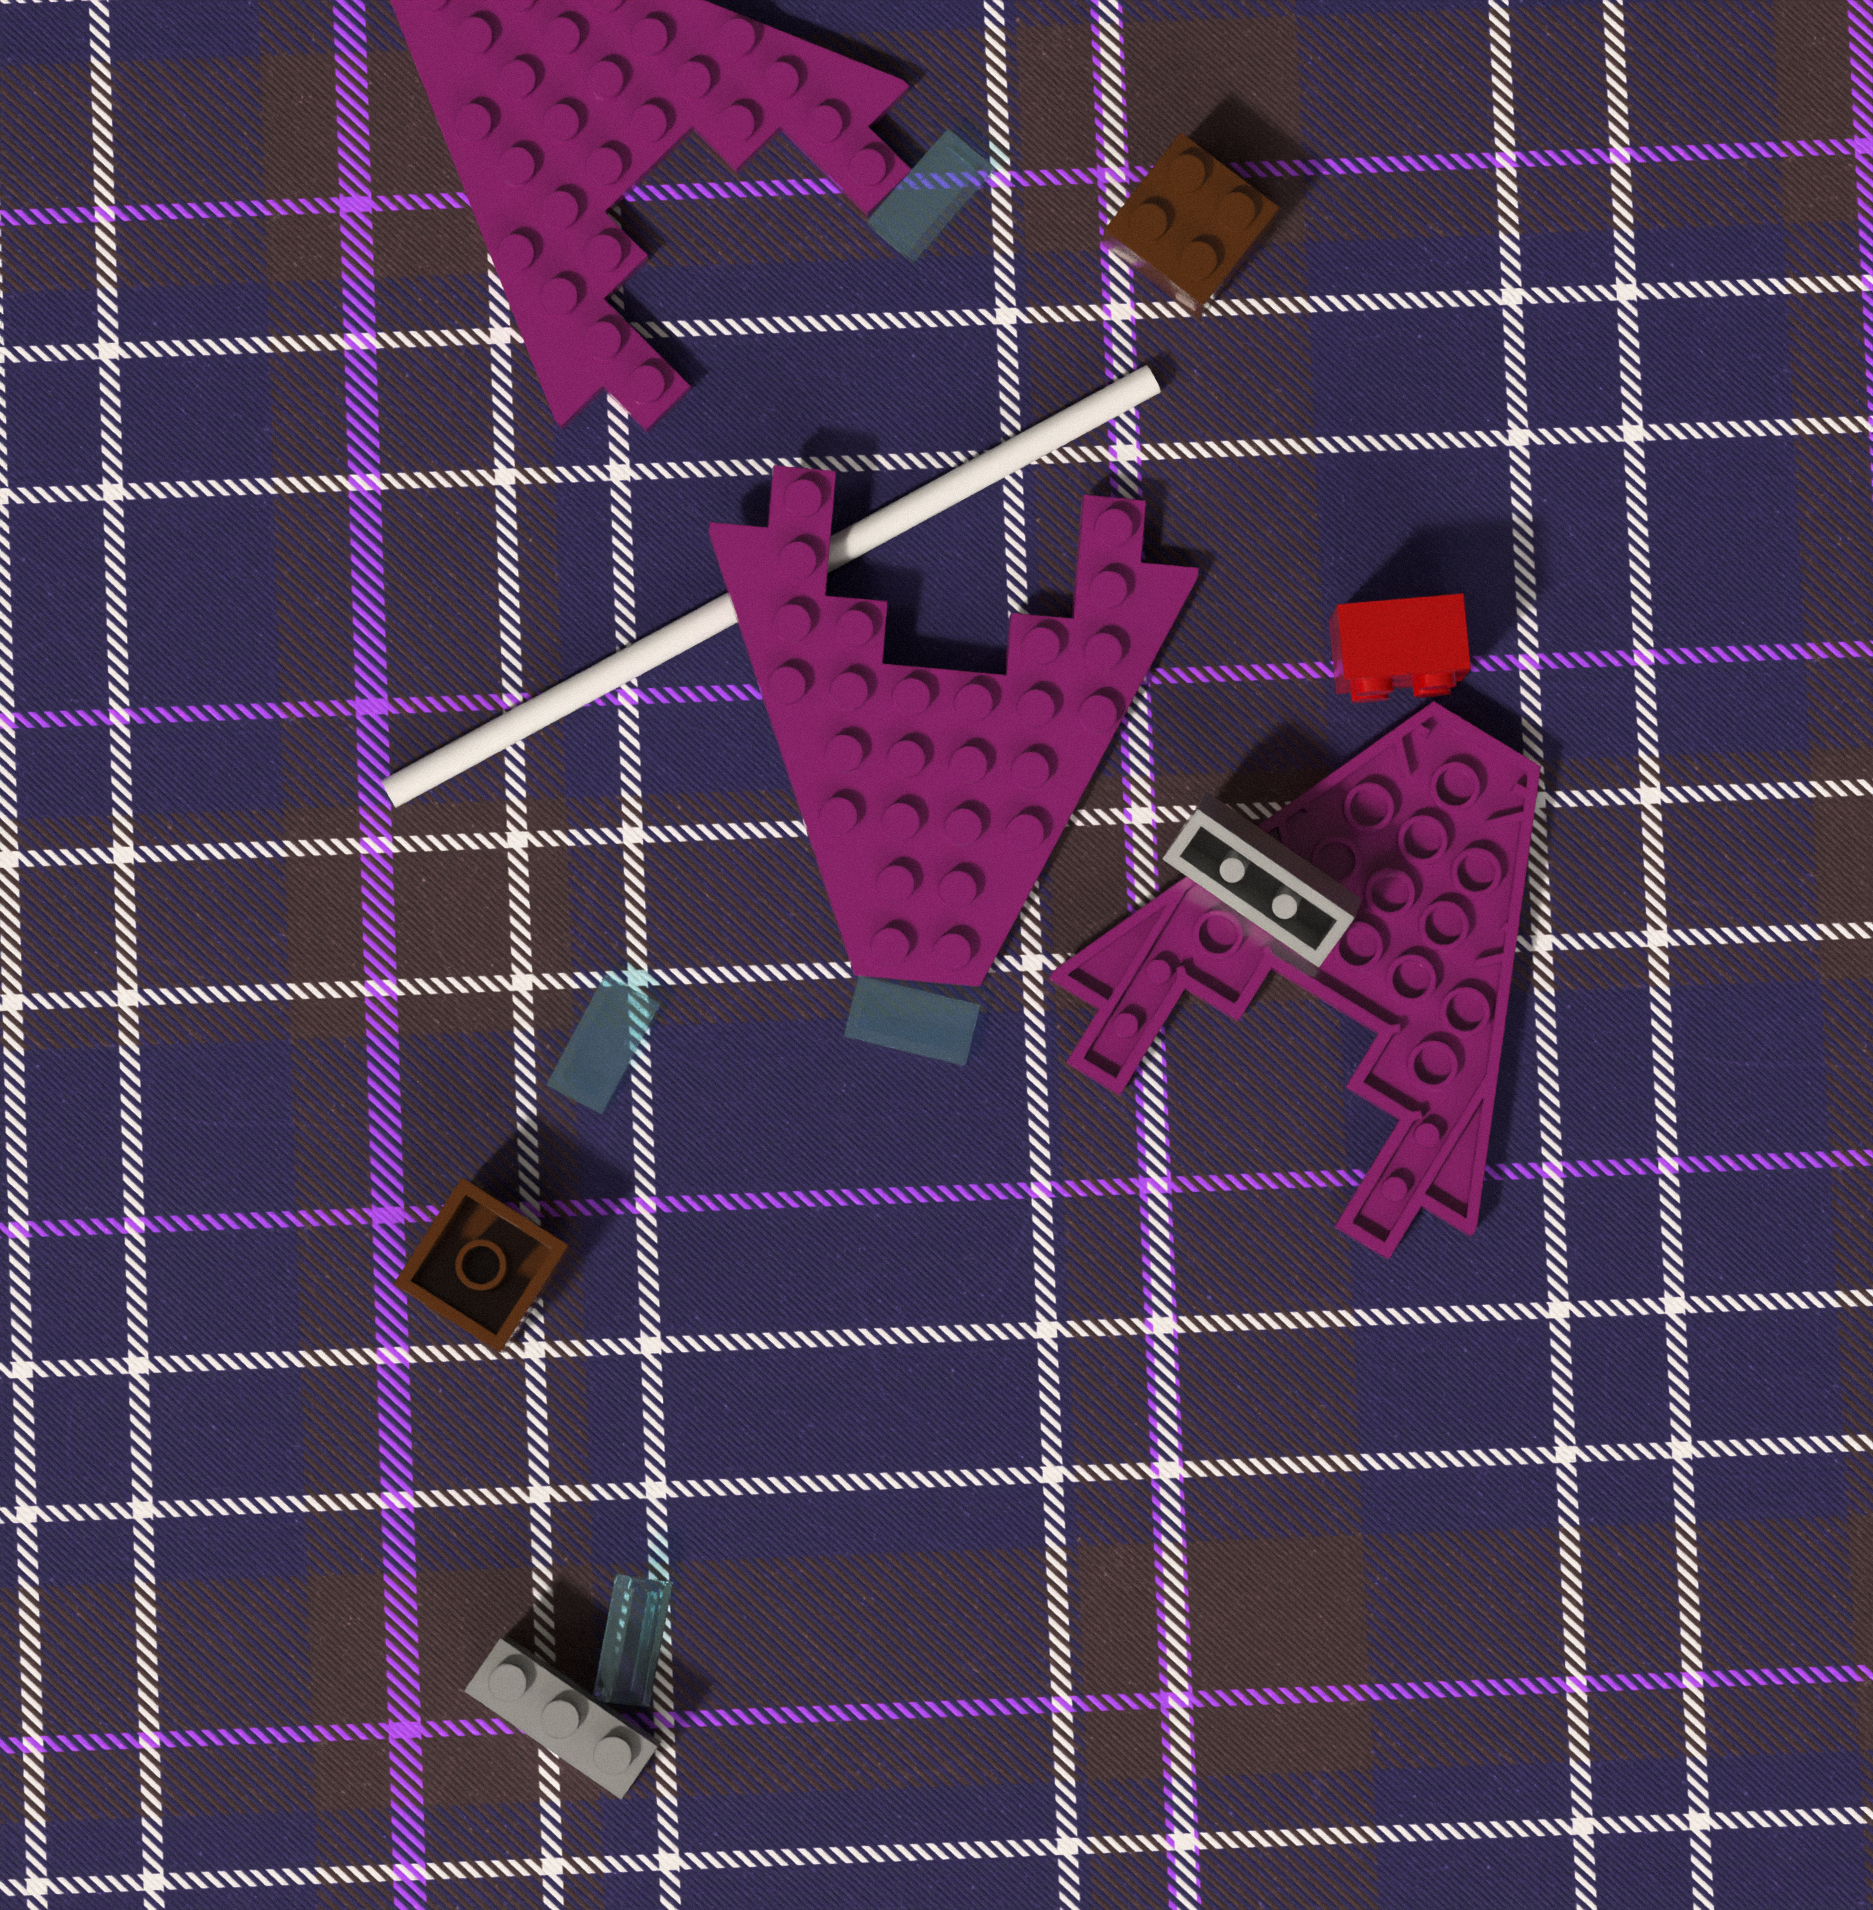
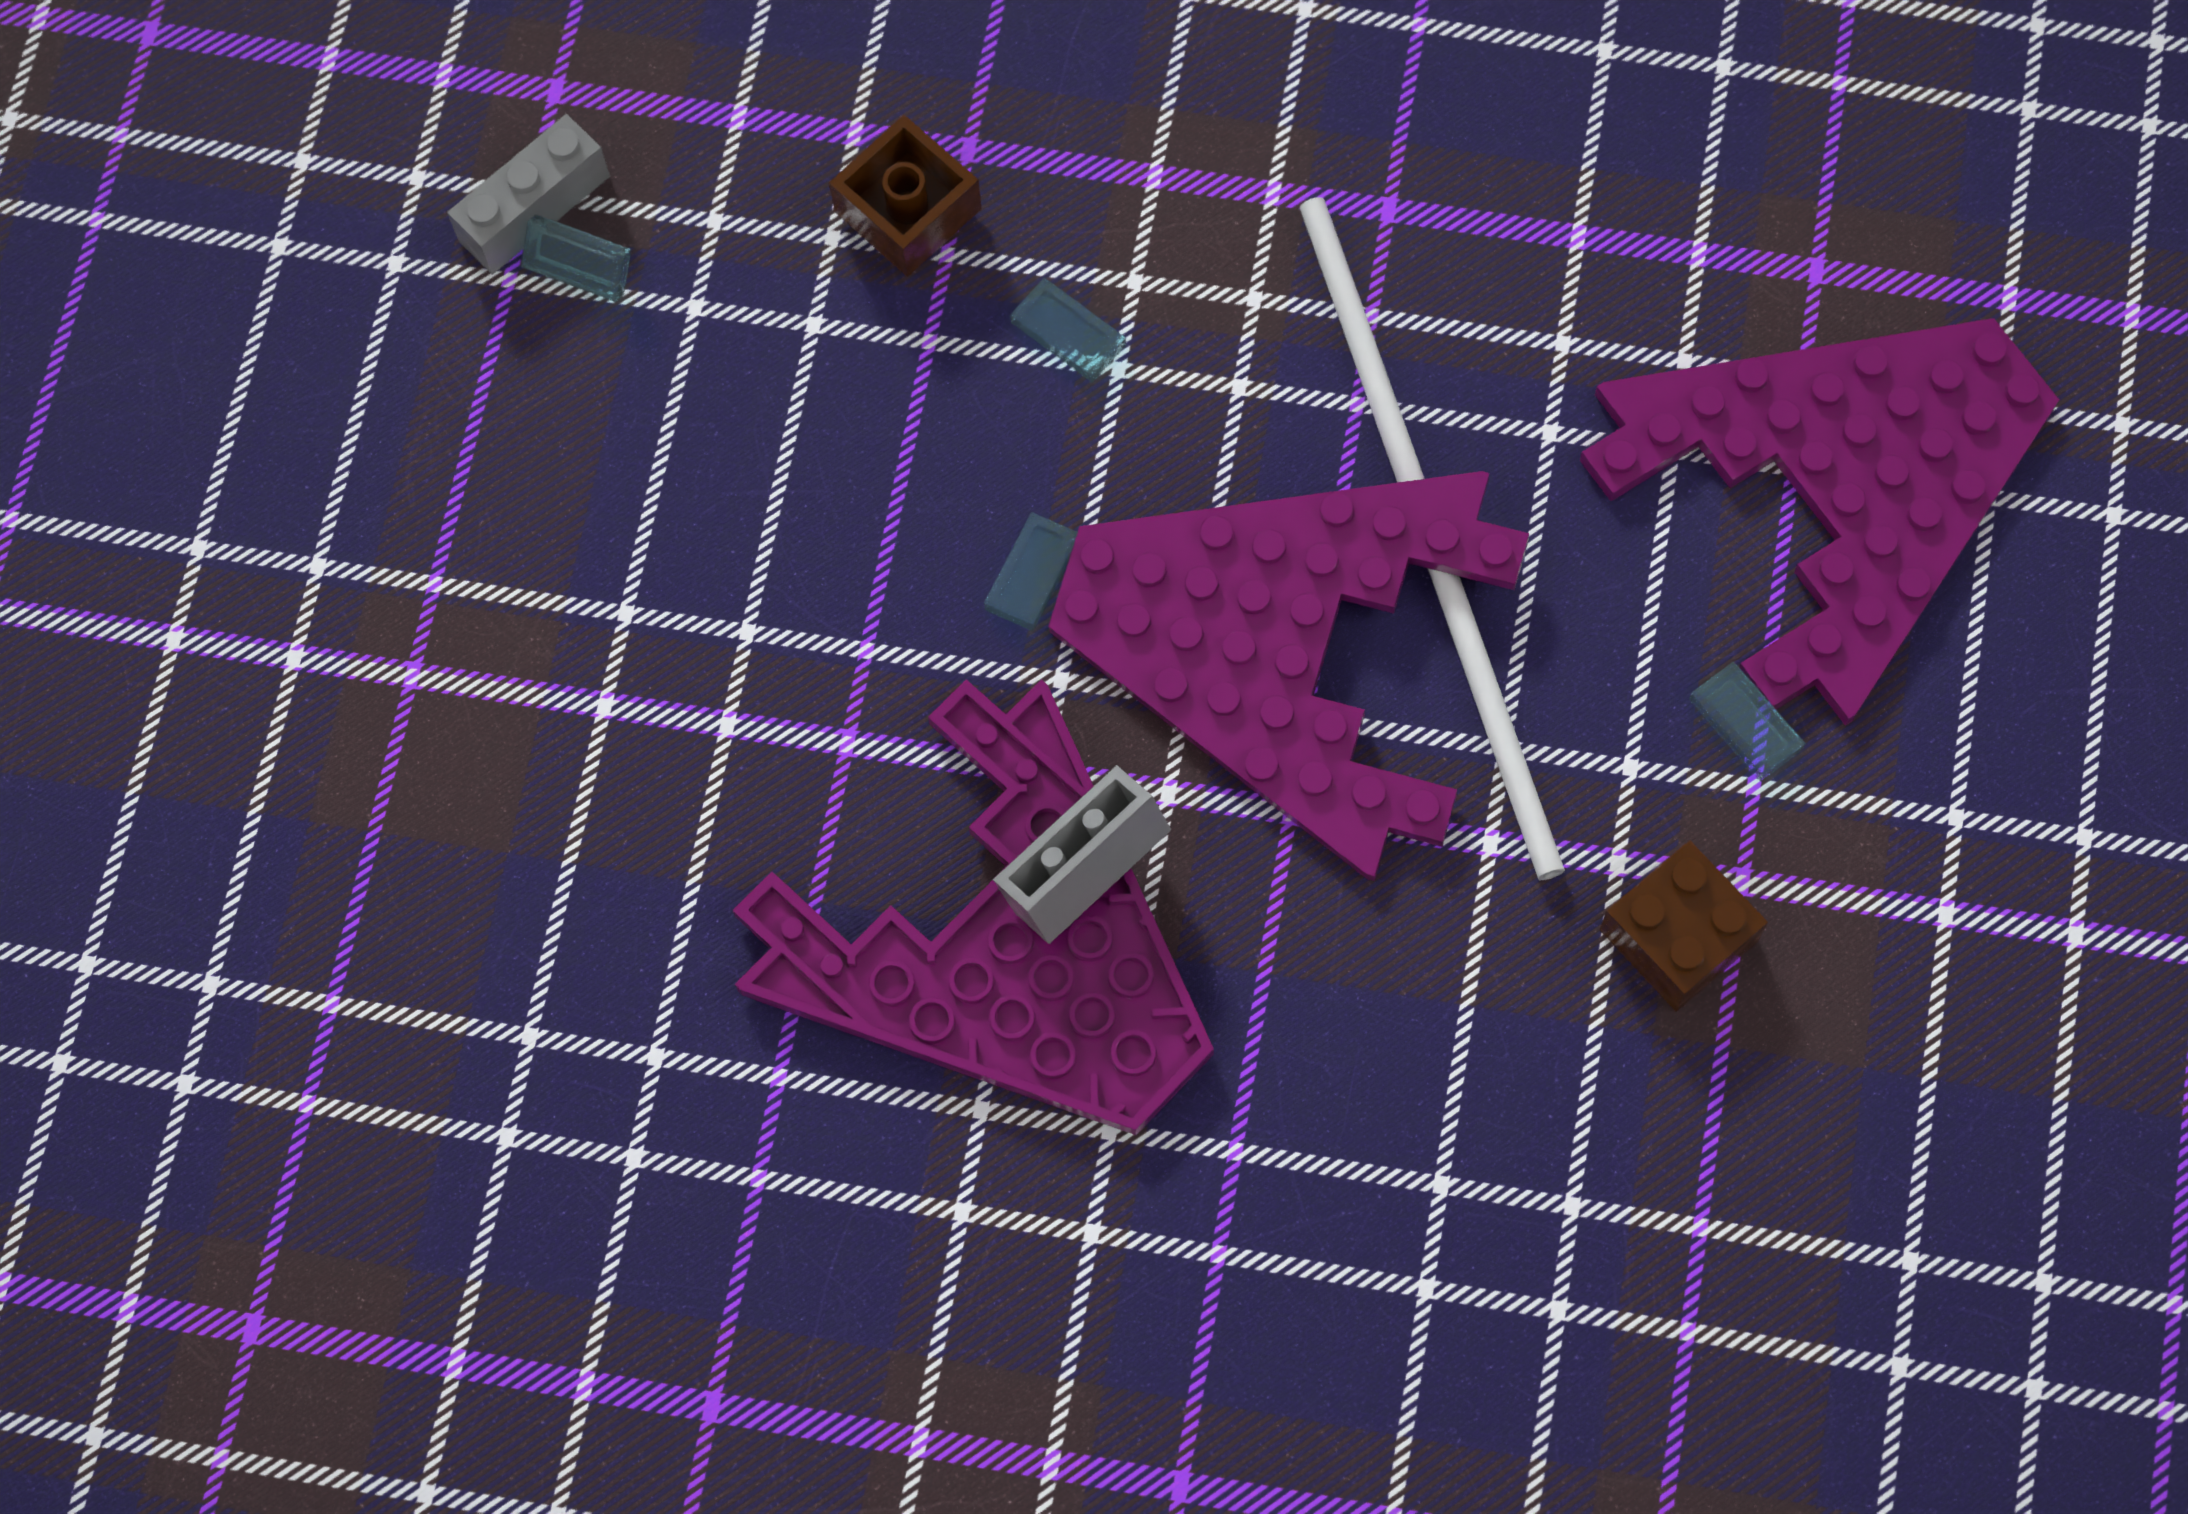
camera: 105 degrees right, 15 degrees down
(1399, 646) = (1267, 1028): red brick -> none

